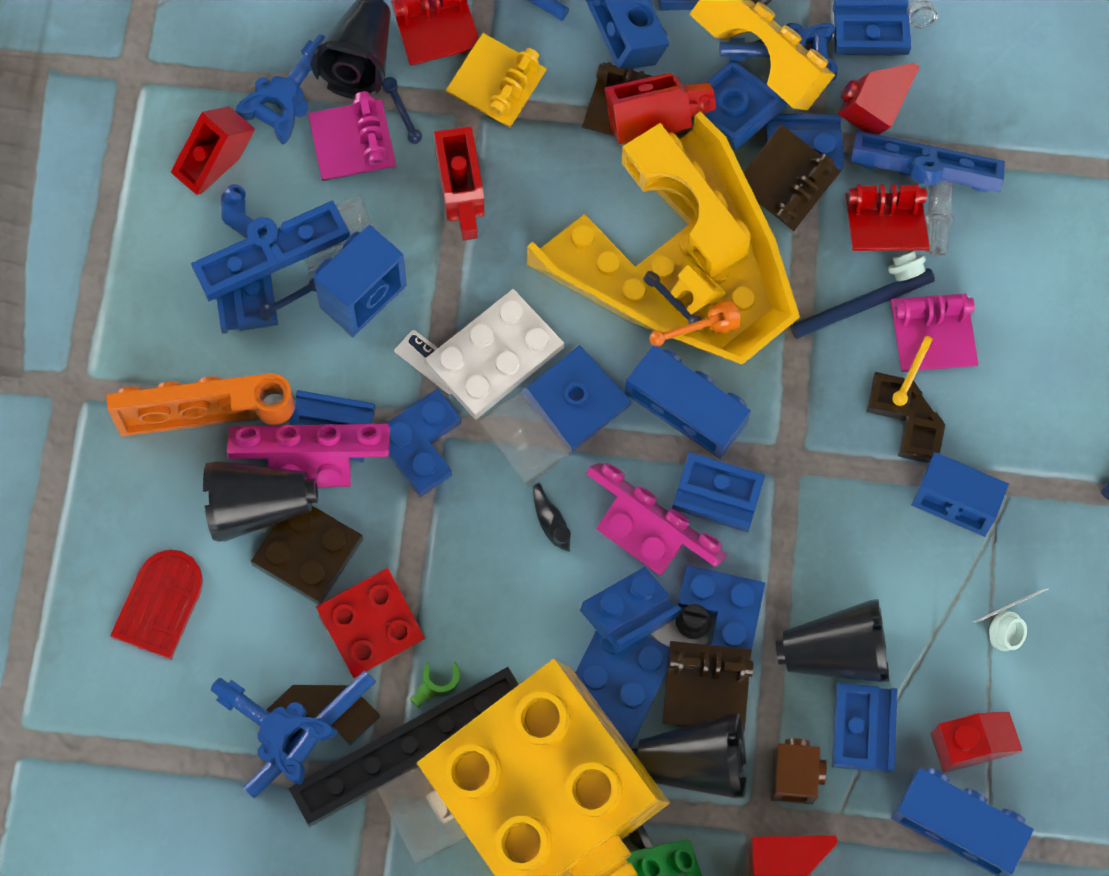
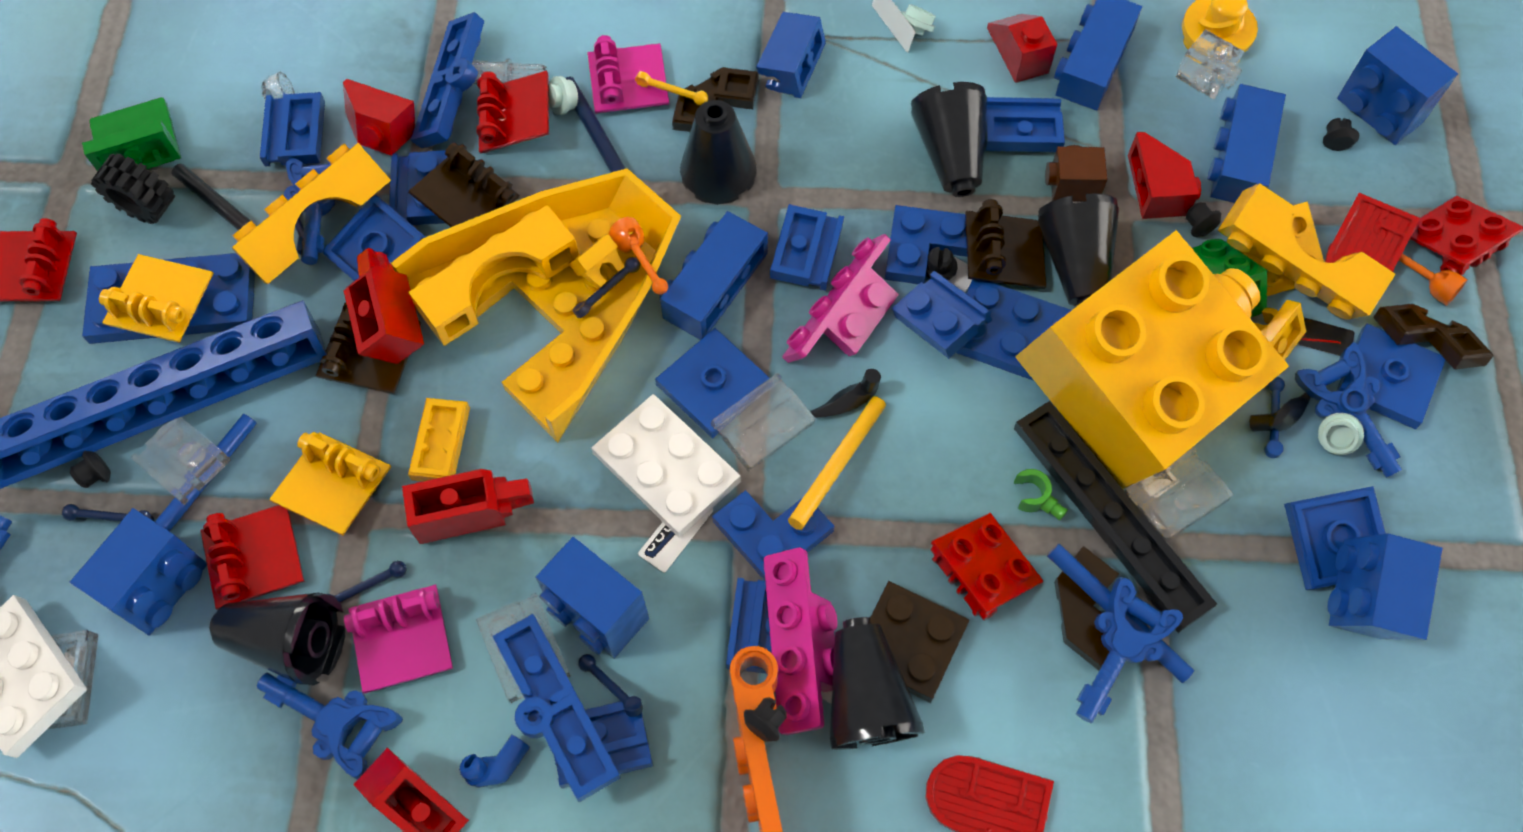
camera: 90 degrees left, 5 degrees down
(222, 393) = (765, 720): none -> black piece
(480, 499) = (836, 463): none -> yellow bar
(529, 164) = (439, 439): none -> yellow plate
(821, 412) = (717, 155): none -> black cone

